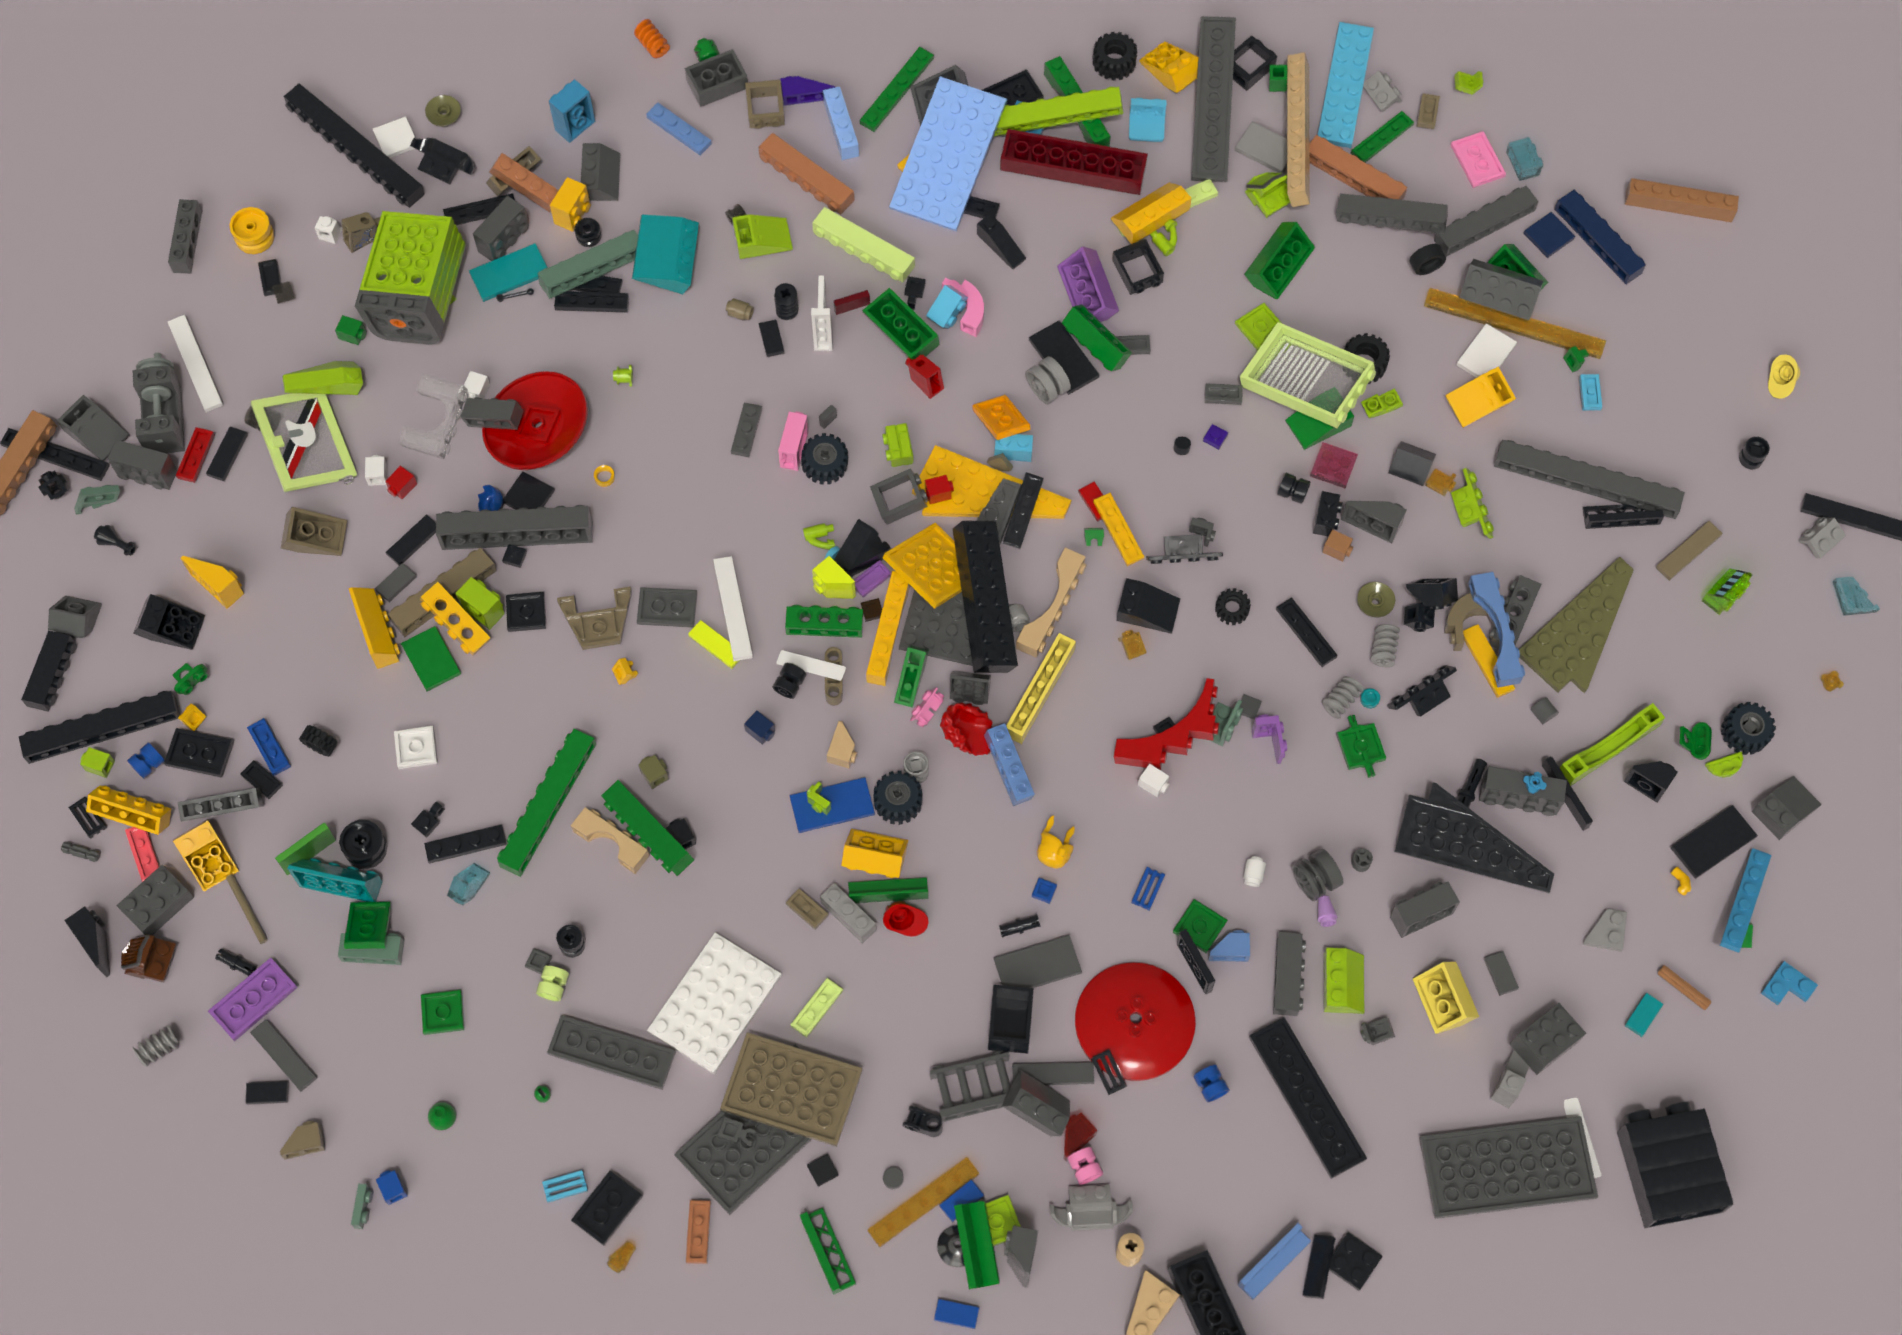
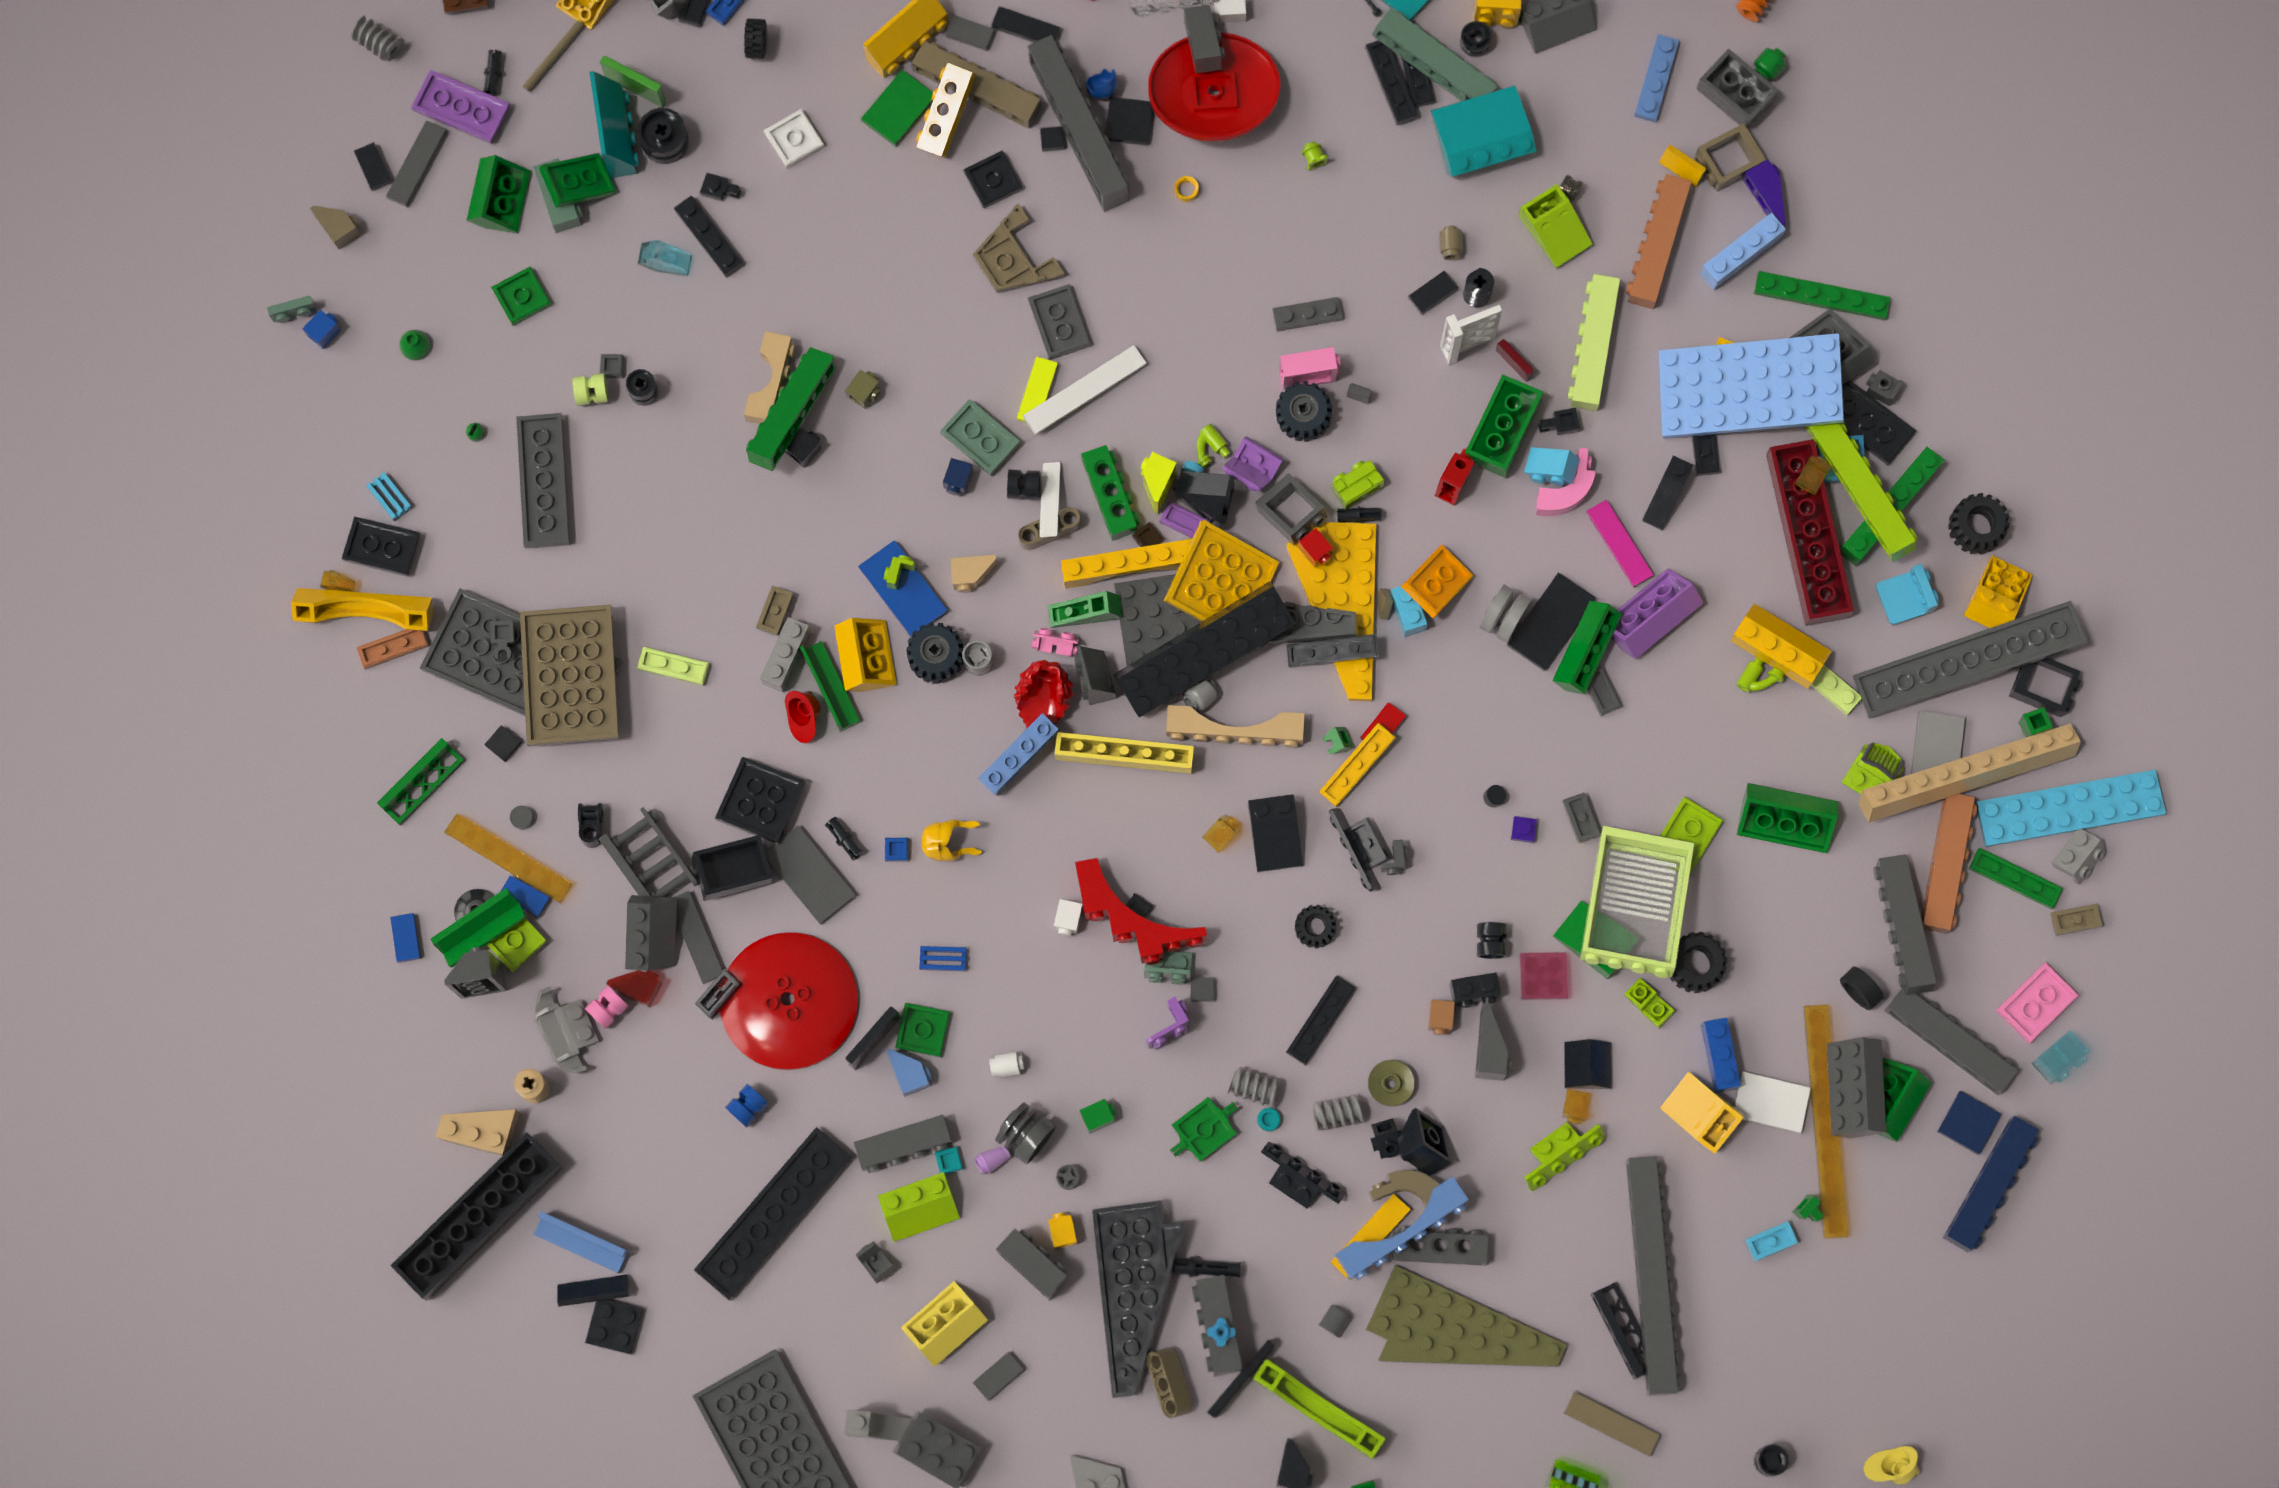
camera: 70 degrees right, 10 degrees up
(345, 996) = (498, 194): none -> green slope
(480, 602) = (976, 128): lime brick -> none
(546, 803) = (784, 296): green brick -> none
(623, 671) = (962, 309): yellow tile -> none
(636, 1276) = (403, 610): none -> yellow arch
(714, 1003) = (637, 560): white plate -> none
(734, 699) = (980, 437): none -> sand green plate
(754, 136) = (1682, 165): none -> yellow tile
(850, 508) = (1253, 465): none -> medium lavender bracket
(922, 454) = (1358, 514): none -> black axle
(961, 978) = (760, 800): none -> black plate
(985, 75) = (1883, 394): none -> dark grey brick
(1024, 289) = (1619, 543): none -> dark pink tile
(1035, 137) = (1813, 474): none -> clear yellow bracket
(1134, 251) = (1718, 642): black window -> none
(1314, 946) = (949, 1160): none -> teal tile
(1321, 819) = (1098, 1115): none -> green brick
(1403, 879) = (1062, 1230): none -> yellow brick
(1440, 370) = (1720, 1055): none -> blue brick
(1468, 83) = (2139, 953): lime bracket -> none
(1545, 839) = (1169, 1383): none -> dark tan beam
(1681, 200) = (2087, 1266): medium nougat brick -> none

